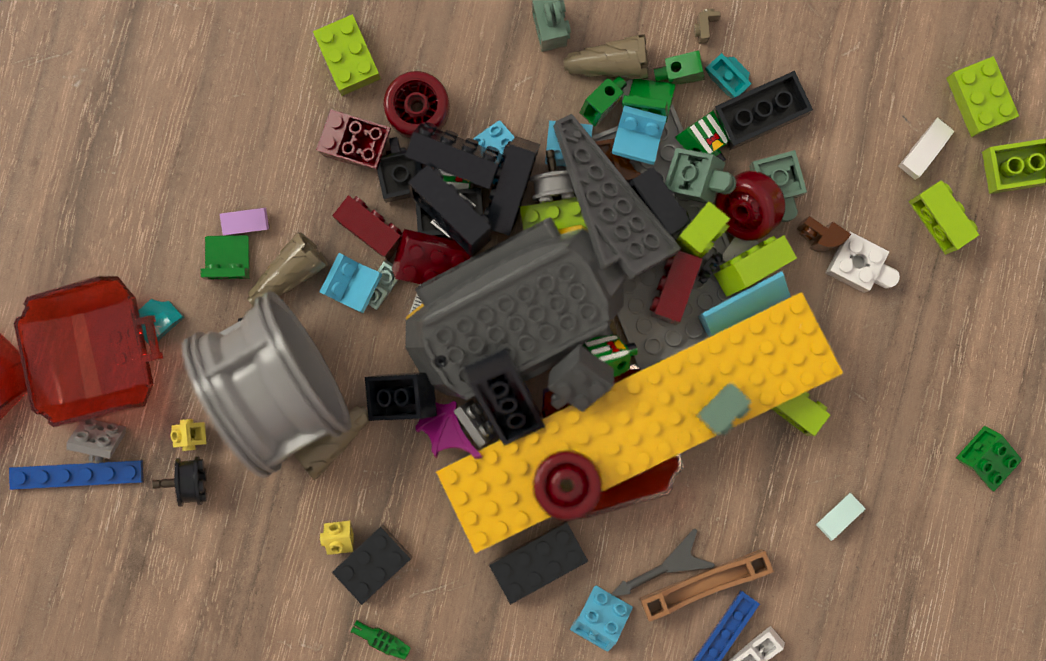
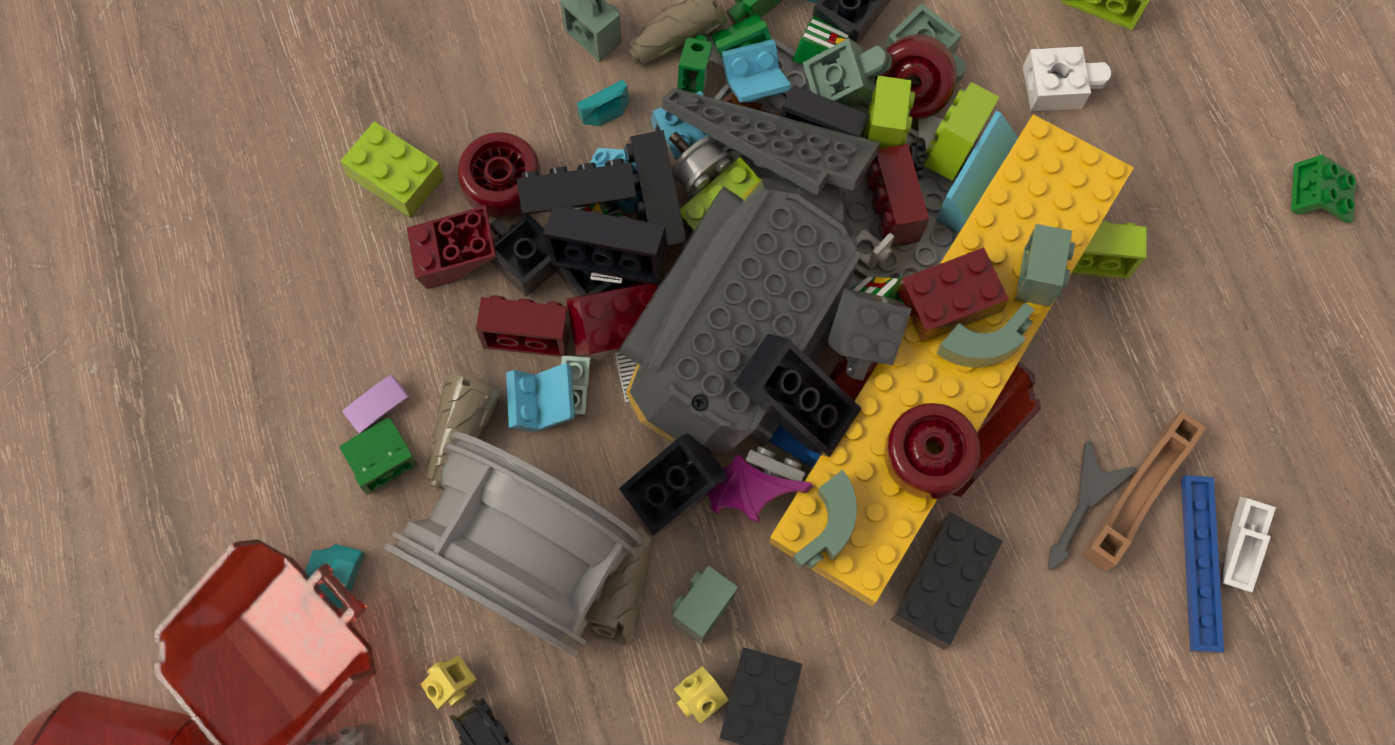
camera: 35 degrees left, 15 degrees down
(372, 485) = (704, 604): none -> sand green brick
(486, 487) = (841, 510): none -> sand green arch
(523, 91) = (604, 105): none -> teal slope
(602, 618) = (1059, 604): medium azure bracket -> none
(638, 319) = (881, 249): none -> white bracket
(648, 439) = (983, 350): none -> sand green arch
(653, 389) = (953, 294): none -> dark red brick
(824, 237) = (1004, 68): reddish brown brick -> none
(840, 516) = (1226, 335): light aqua slope -> none

